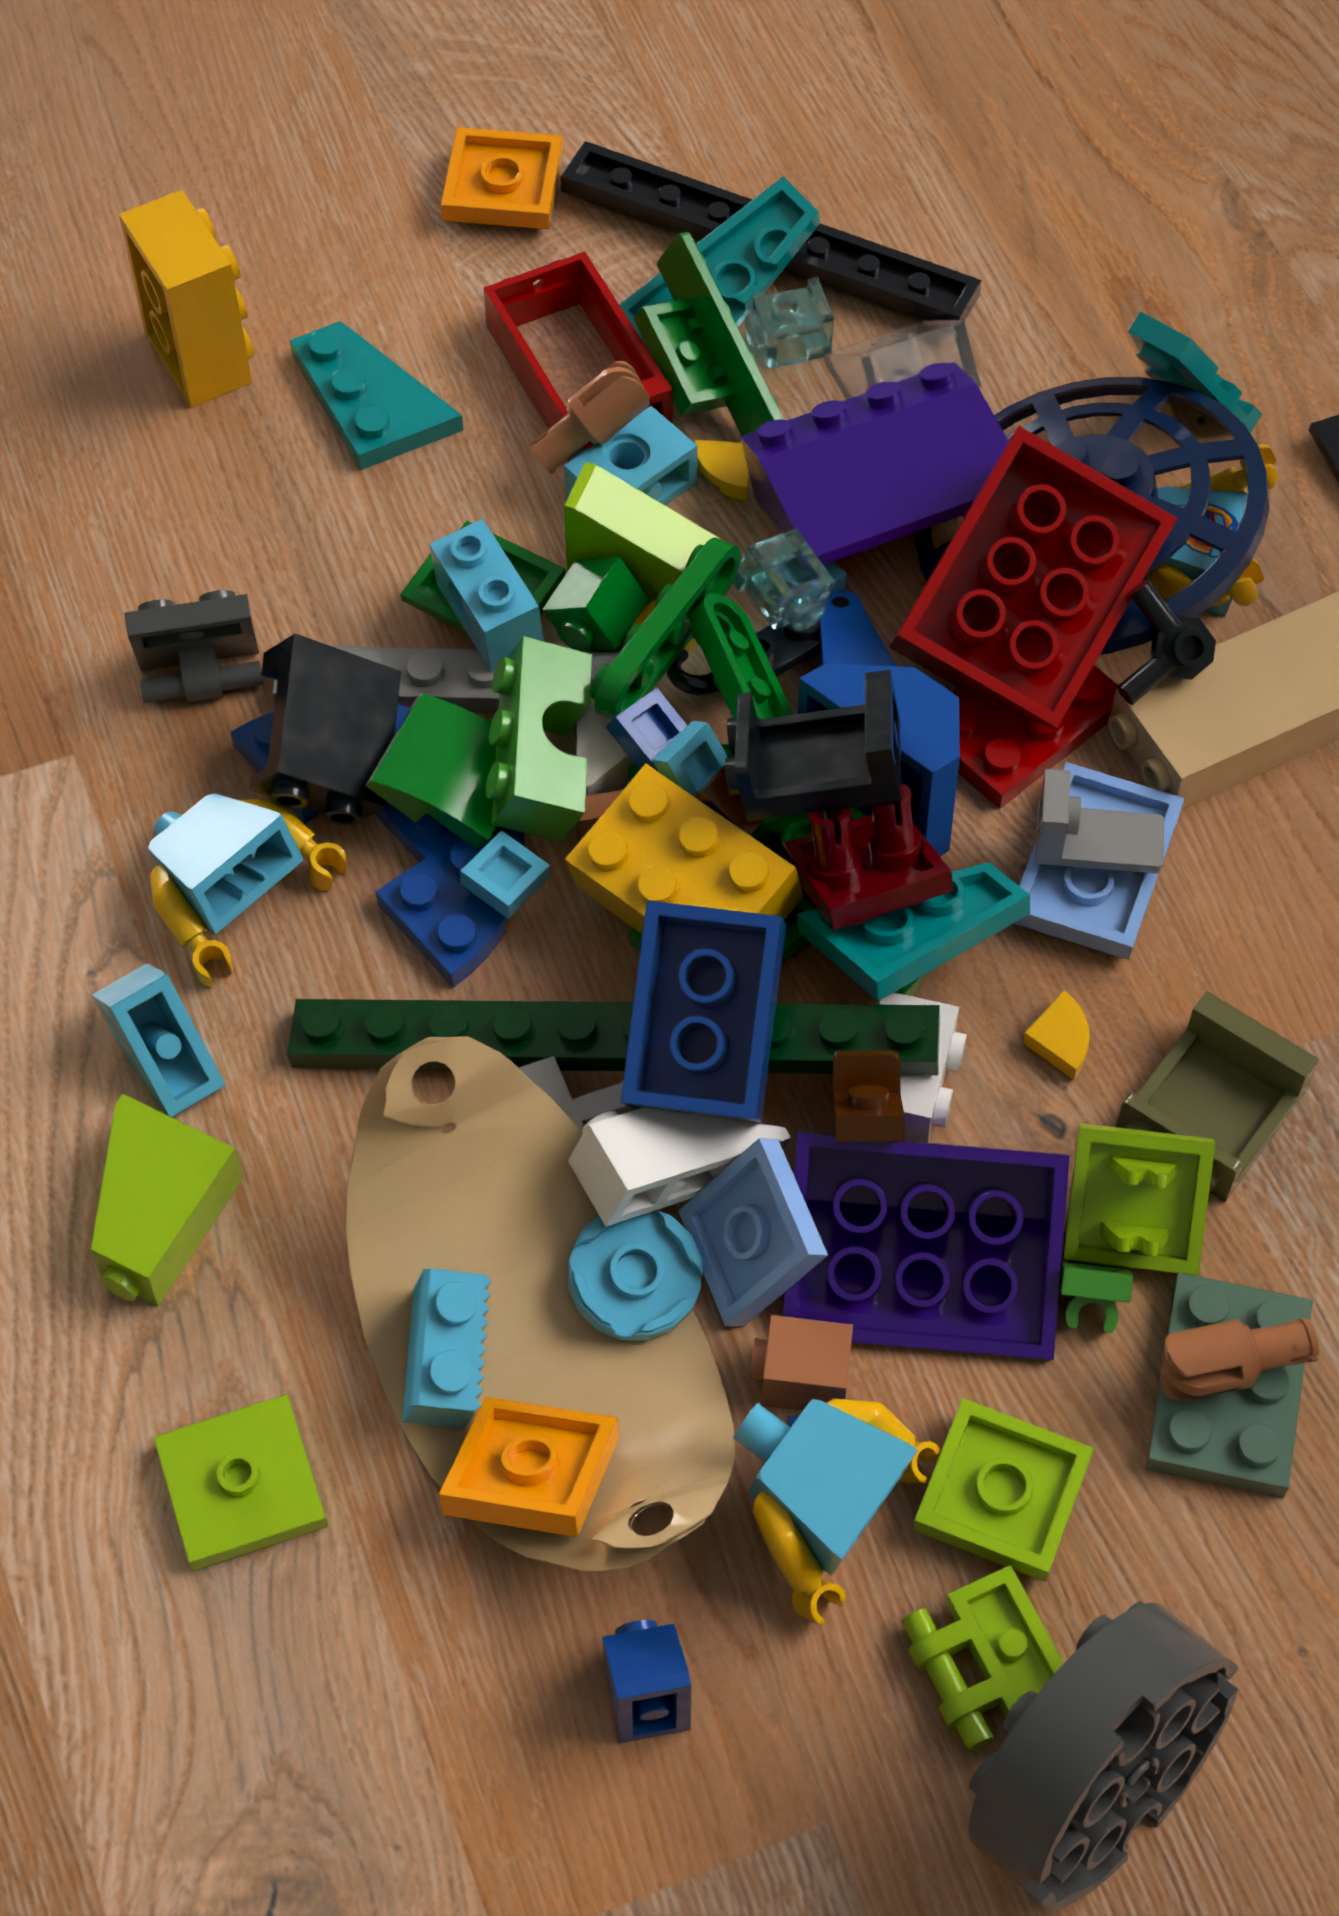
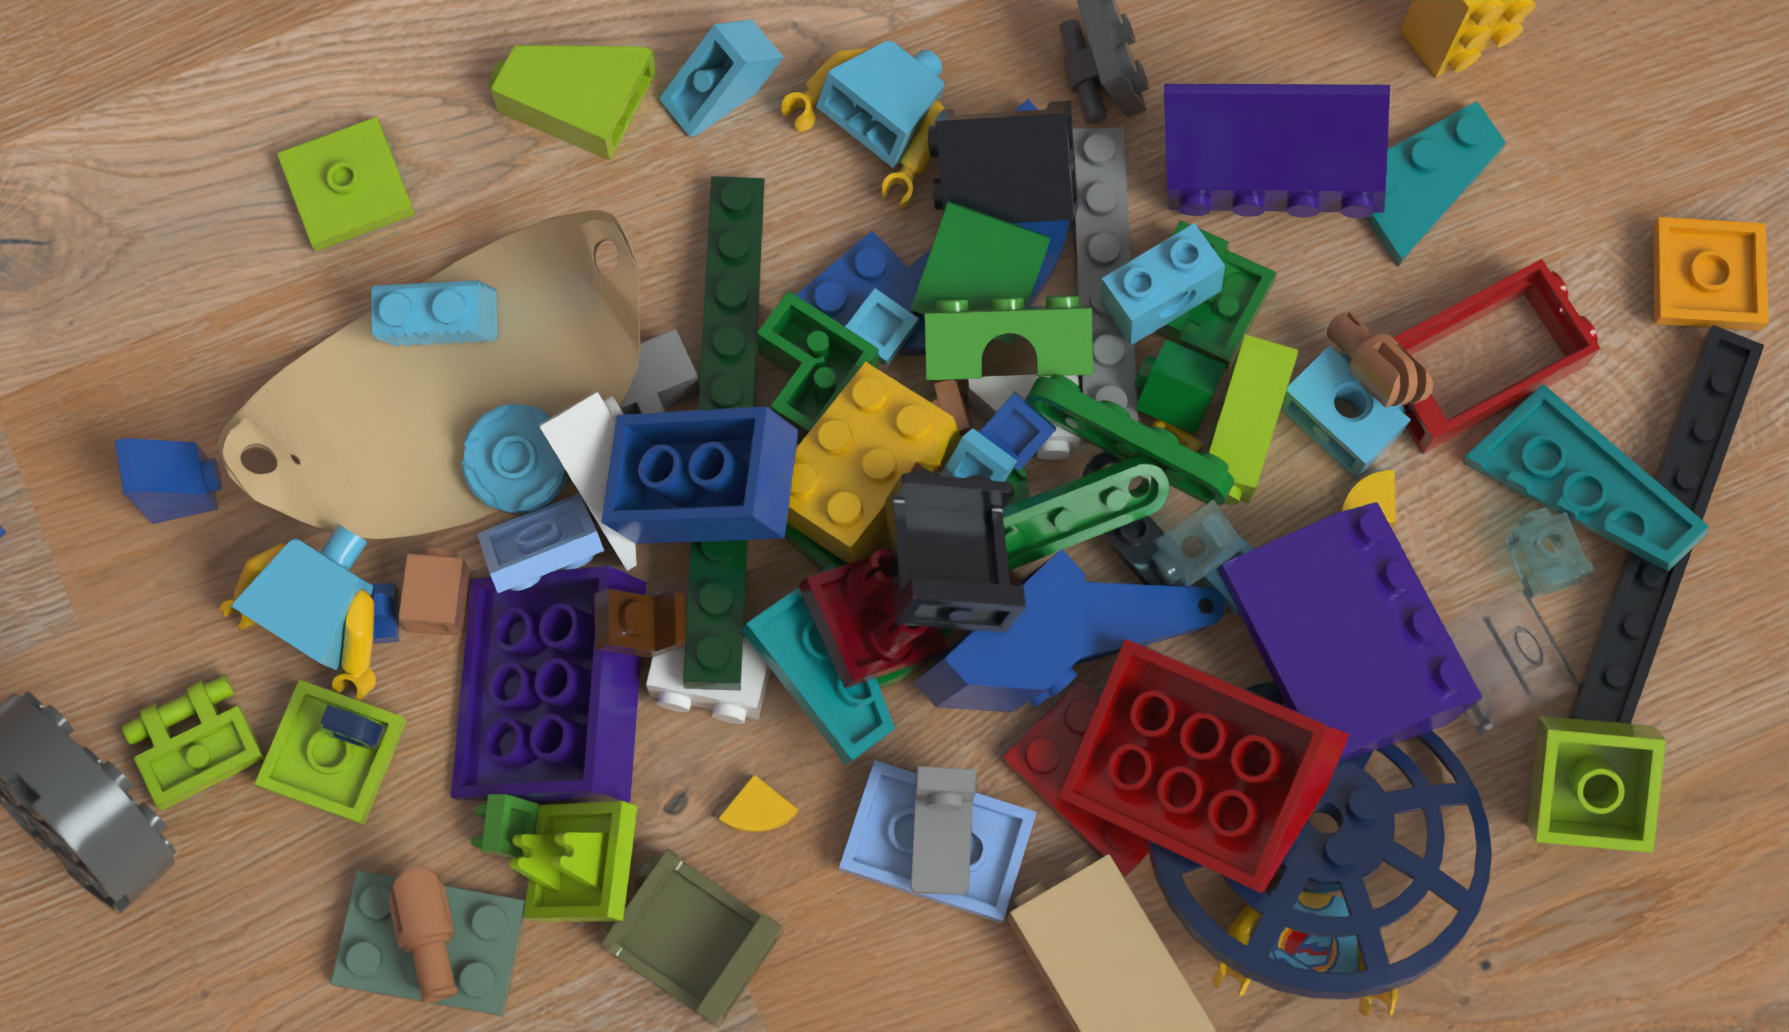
camera: 85 degrees right, 15 degrees up
(348, 478) = (1276, 148): none -> dark purple slope
(530, 1466) = (336, 382): light orange plate -> none
(548, 930) = (816, 354): none -> green brick
(701, 344) = (1485, 458): green bracket -> none
(985, 1443) = (351, 728): none -> dark blue tile
(1034, 295) = (1596, 784): none -> lime brick
(1178, 647) = (1141, 905): black piece -> none
(1180, 360) = (1502, 932): teal wing -> none

